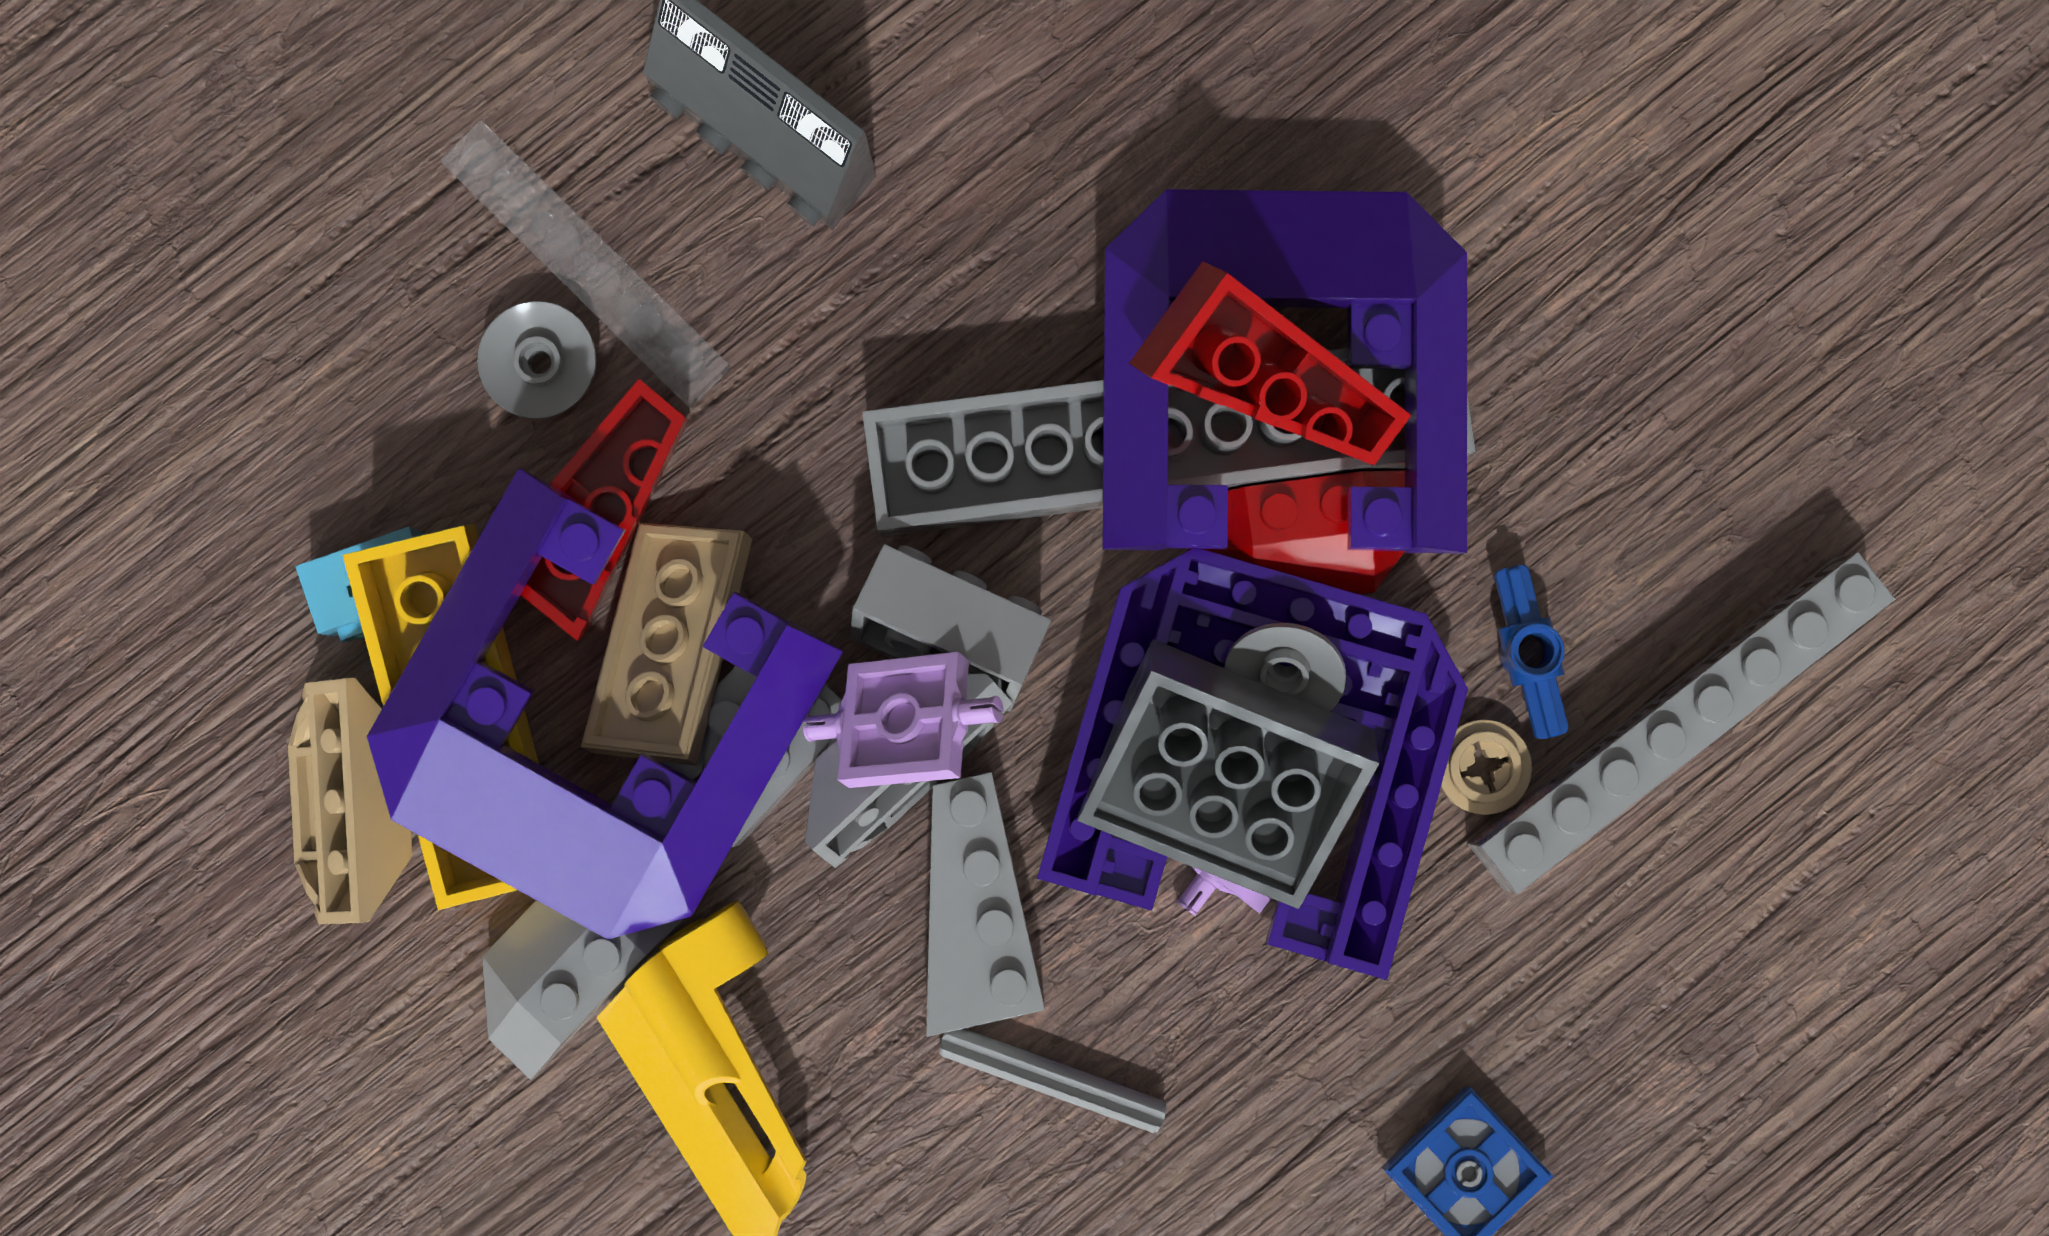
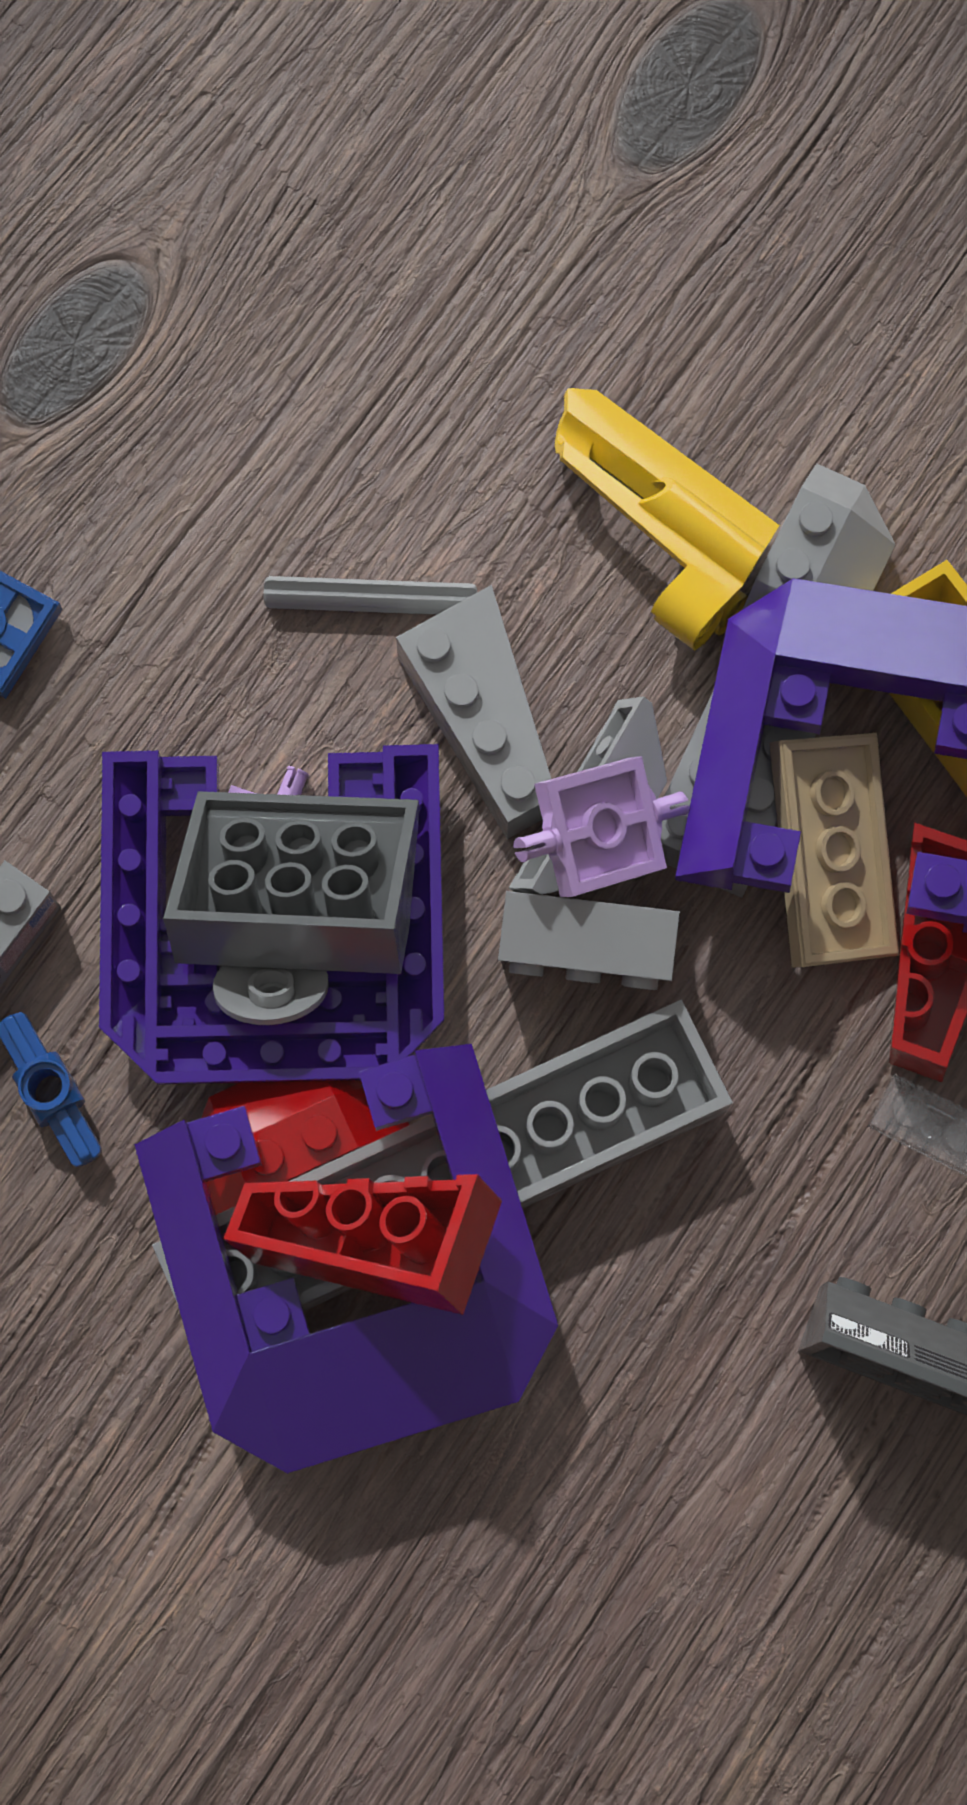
camera: 165 degrees right, 10 degrees down
(1507, 781) = (38, 972): tan gear -> none

